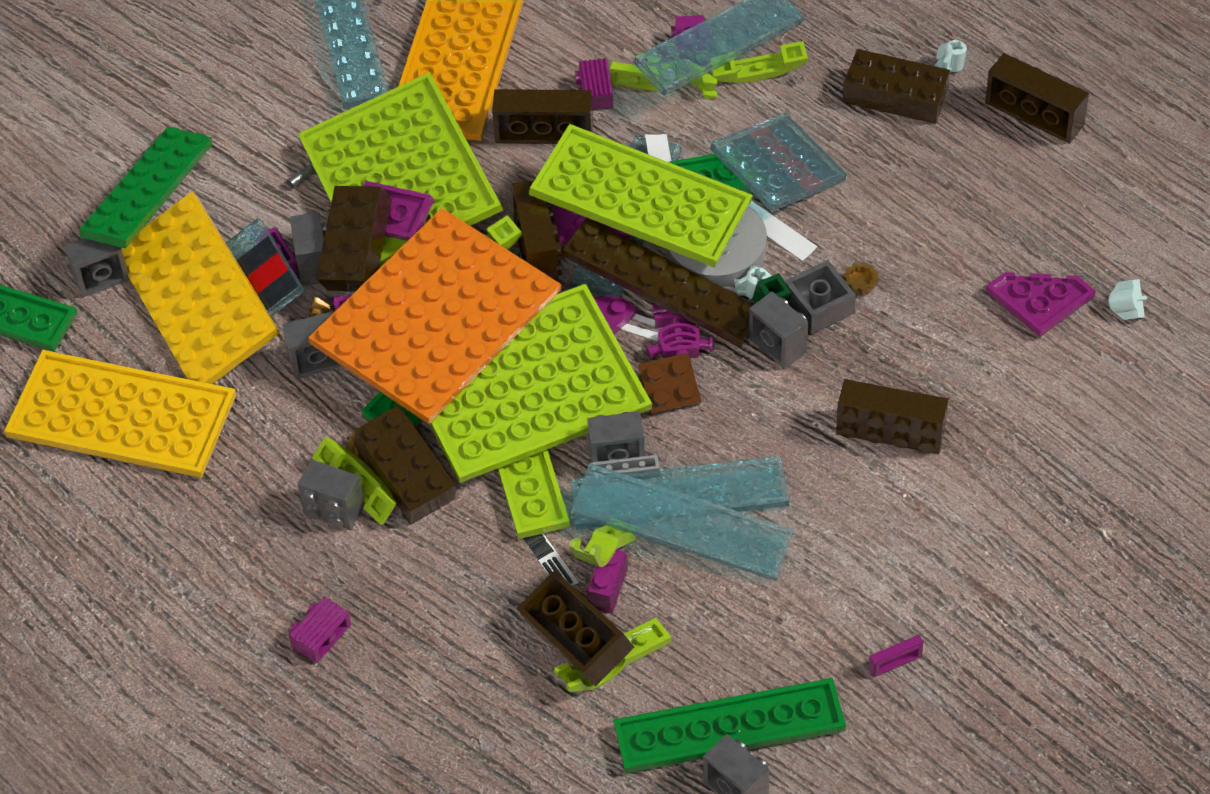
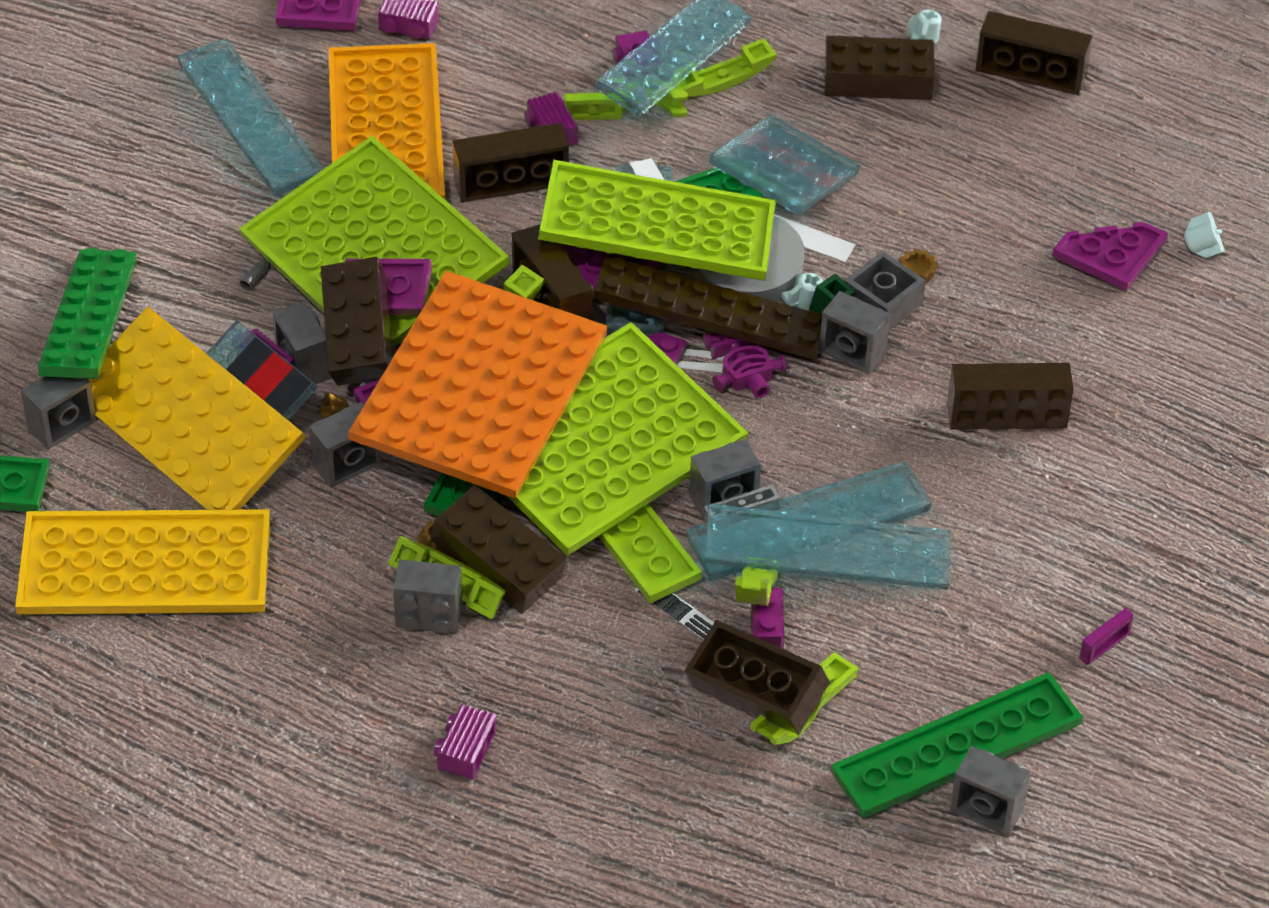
camera: 20 degrees left, 5 degrees down
(670, 383) = (757, 408): reddish brown plate -> none

